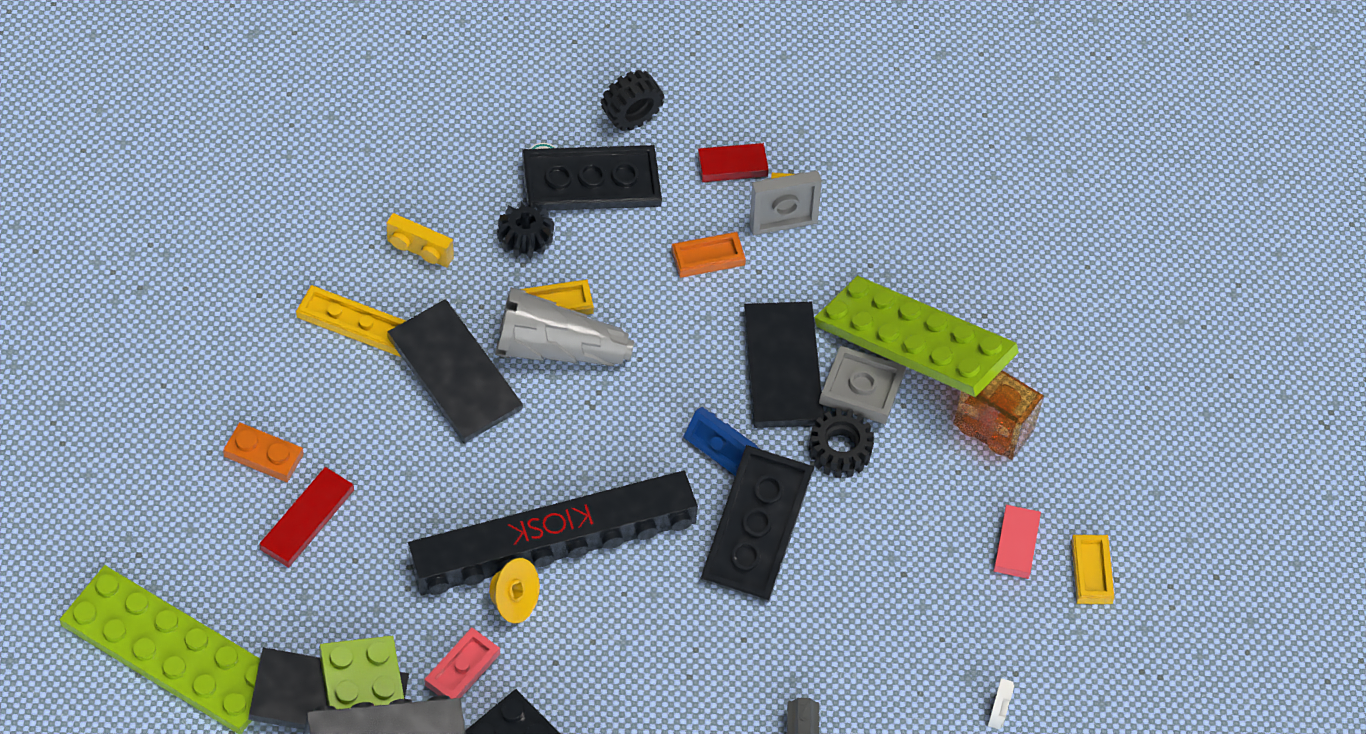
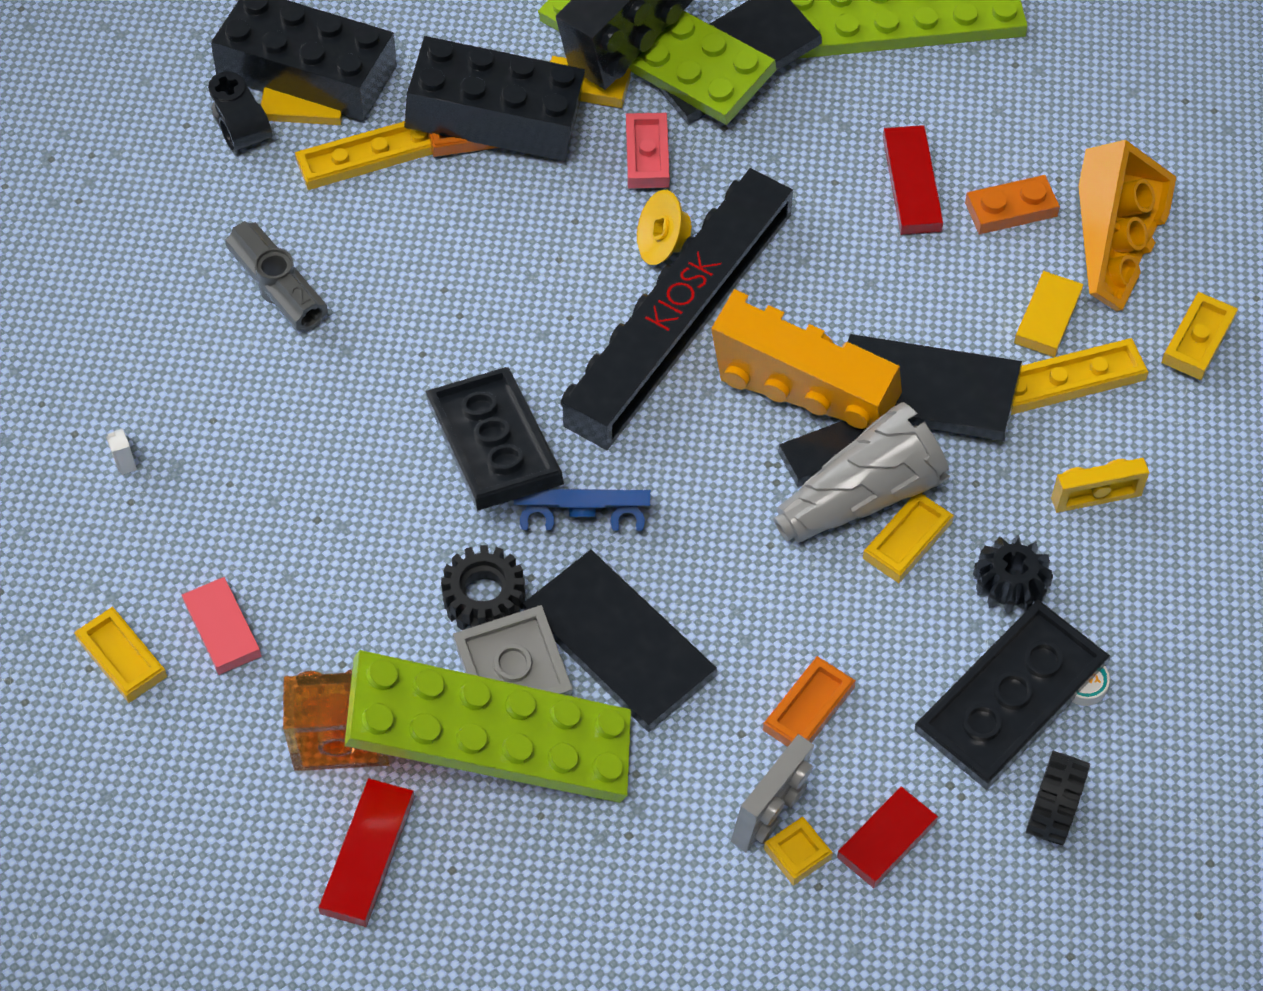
camera: 145 degrees right, 0 degrees up
(201, 396) = (1121, 206): none -> light orange wedge
(255, 281) = (1199, 335): none -> yellow plate
(325, 365) = (1048, 313): none -> yellow tile
(526, 419) = (801, 365): none -> light orange wedge
(551, 382) = (809, 452): none -> black tile
(1041, 345) = (366, 852): none -> red tile

